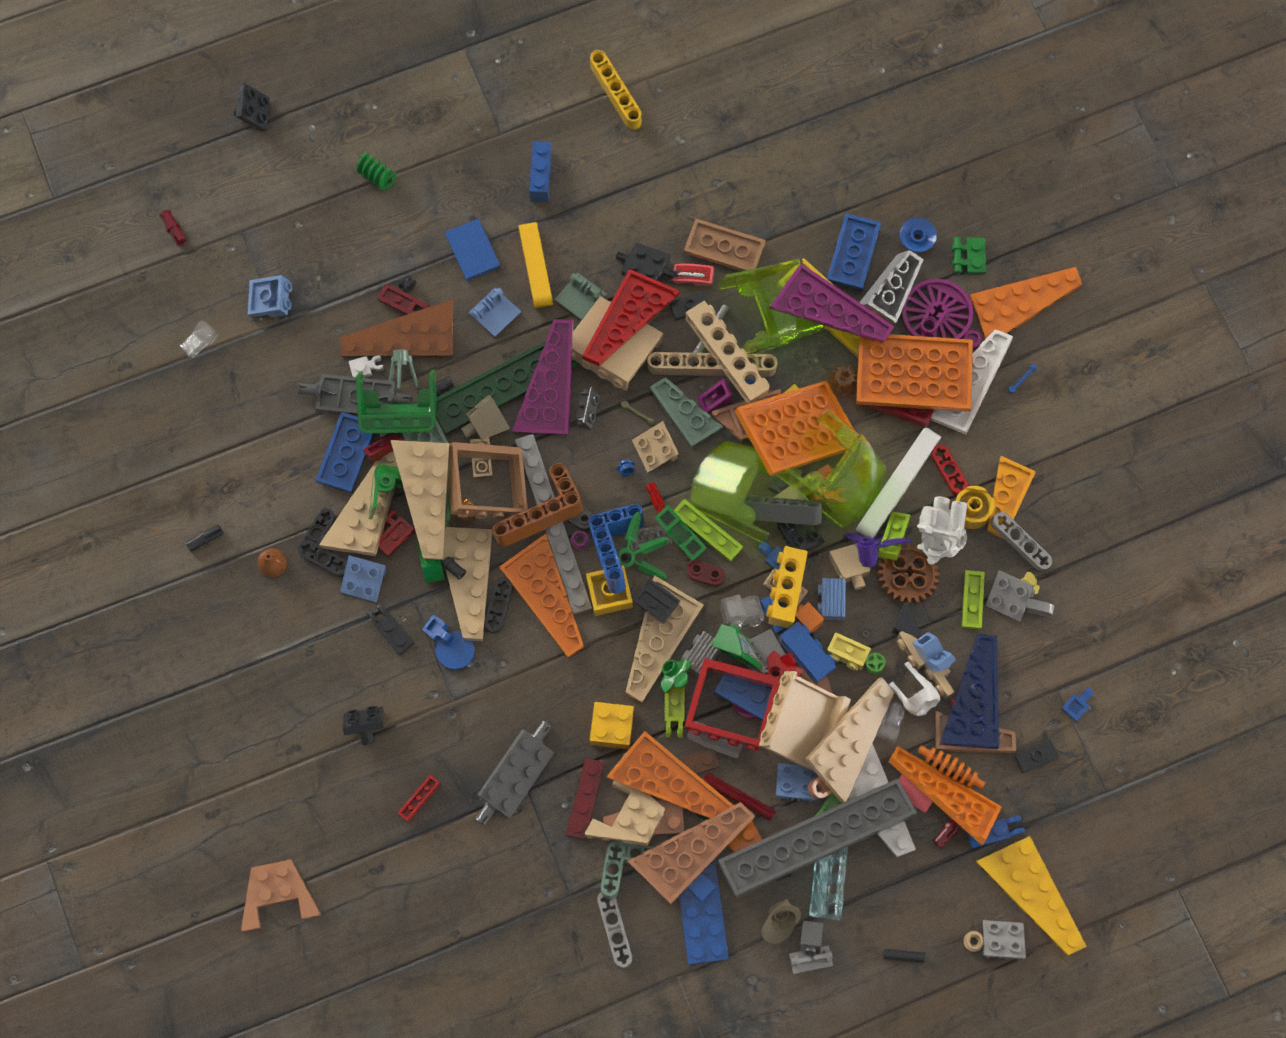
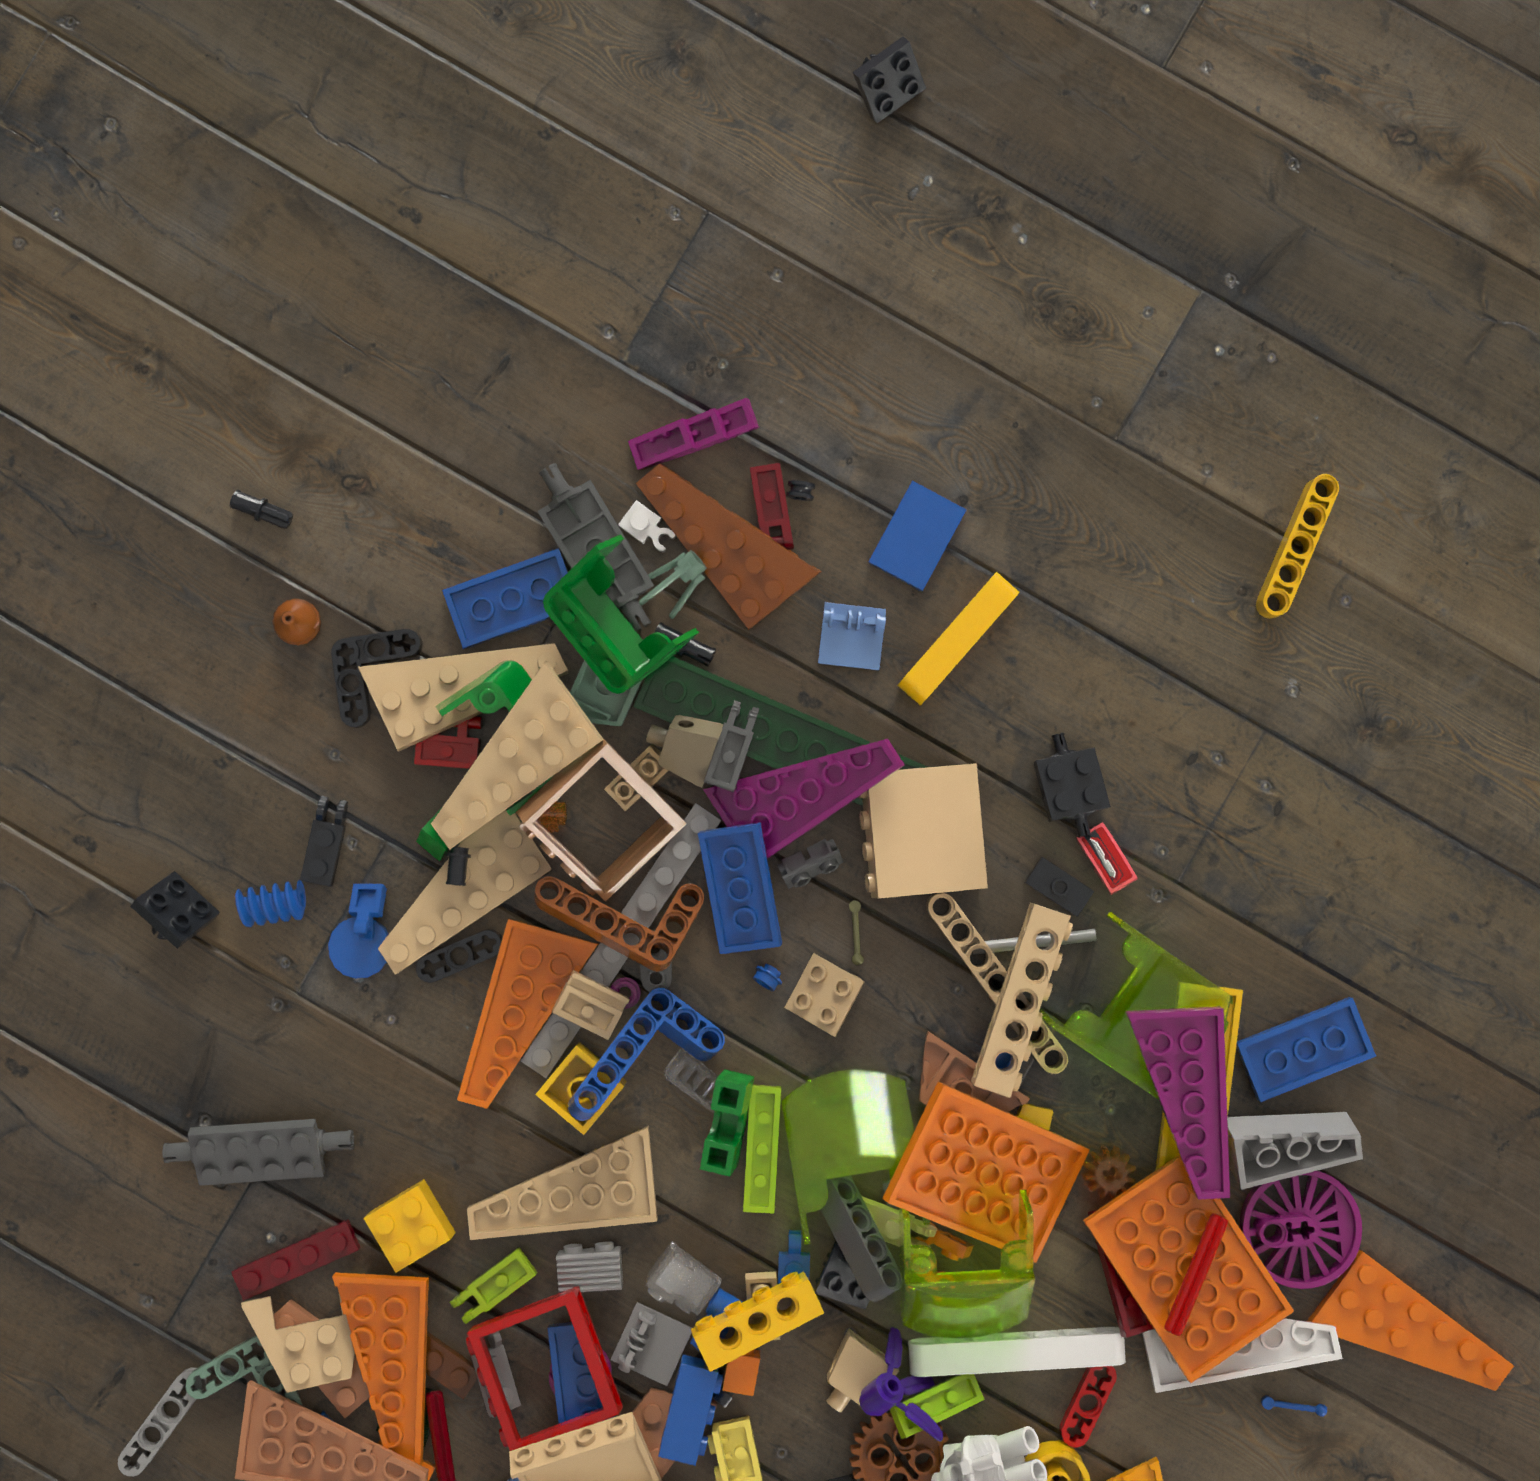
camera: 50 degrees right, 15 degrees up
(173, 227) = (643, 116): dark red pin -> none
(202, 335) = (526, 281): clear piece -> none
(269, 296) = (643, 324): medium blue plate -> none
(340, 313) = (693, 434): none -> magenta slope
(363, 578) = (362, 756): medium blue hinge -> none
(375, 173) = (924, 319): green piece -> none
(382, 447) = (547, 644): dark red plate -> none
(399, 673) = (271, 905): none -> blue piece
(419, 798) = (138, 1052): red piece -> none
(504, 400) = (731, 750): none -> dark grey hinge
(540, 171) = (1097, 539): blue brick -> none
(572, 446) = (740, 888): none -> blue plate
(572, 555) = (590, 1004): none -> tan plate
(579, 295) = (960, 732): sand green hinge -> none
(631, 309) = (988, 822): red wing -> none
(643, 548) = (644, 1074): green plant -> none
(655, 496) = (755, 1049): red axle -> none
(656, 601) = (611, 1161): black plate -> none
(675, 674) = (533, 1263): green plate -> none
(685, 414) = (898, 1008): sand green wing -> none
(704, 575) = (703, 1189): dark red plate -> none
(716, 397) = (952, 1022): magenta slope -> none
(724, 246) = (1179, 870): medium nougat plate -> none
(736, 646) = (624, 1316): green slope -> none
(781, 664) = (655, 1386): red plate -> none
(832, 599) = (790, 1381): medium blue brick -> none
(920, 368) = (1196, 1274): none -> red axle
(921, 228) = (1410, 1122): blue dish -> none
(975, 256) = (1426, 1215): green plate -> none
(975, 336) = (1301, 1300): magenta tile -> none

